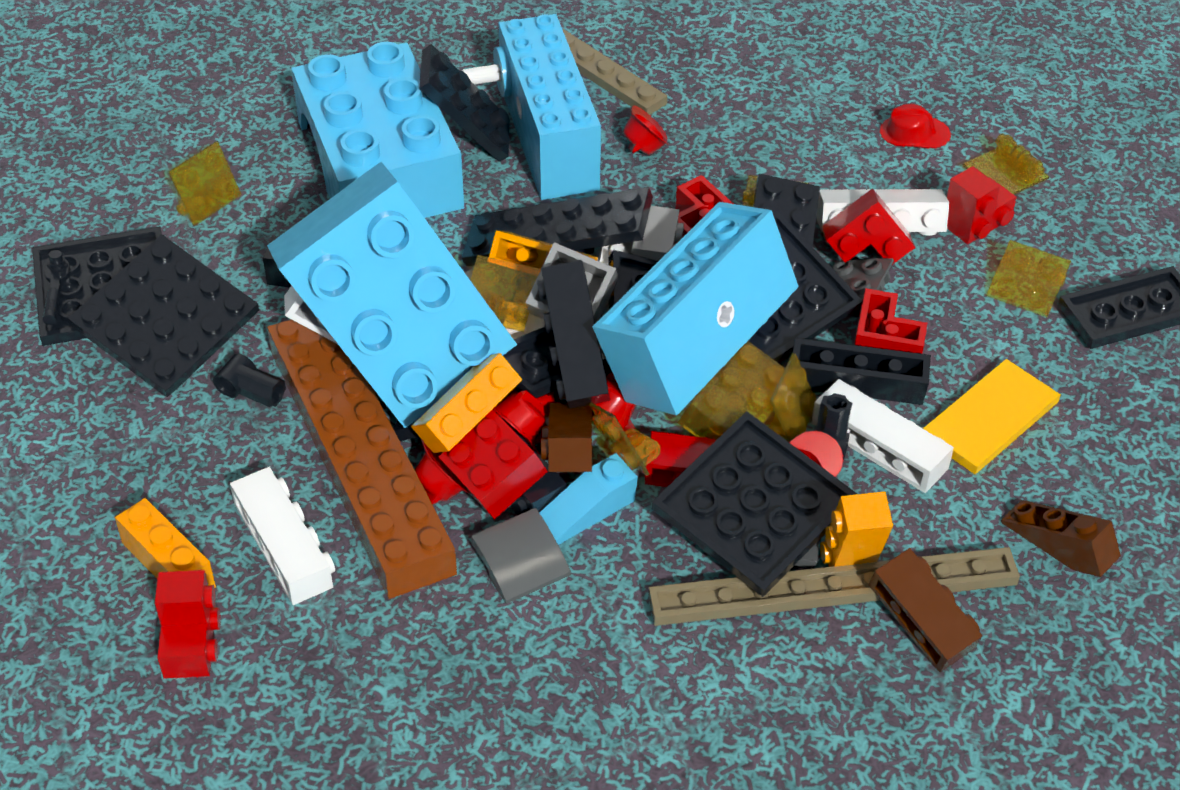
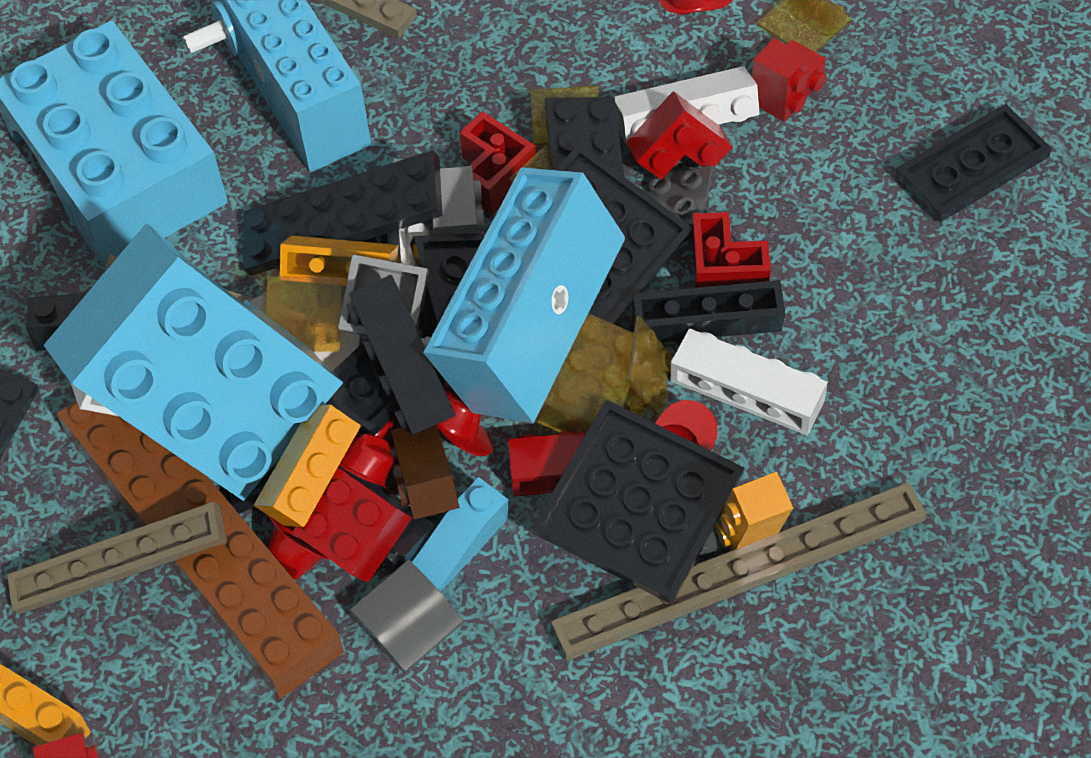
camera: 10 degrees left, 10 degrees up
(243, 378) = (44, 477): black piece -> none
(281, 446) = (117, 558): none -> dark tan plate
(282, 535) = (145, 656): white brick -> none
(464, 102) = (196, 79): black plate -> none
(632, 446) = (489, 462): clear yellow hinge -> none
(643, 132) = (403, 63): red piece -> none
(834, 419) = (697, 381): black piece -> none
(925, 609) = (841, 578): reddish brown brick -> none
(992, 415) = (855, 327): yellow tile -> none
(1028, 278) = (858, 153): clear yellow hinge -> none
(1072, 538) = (969, 455): reddish brown slope -> none

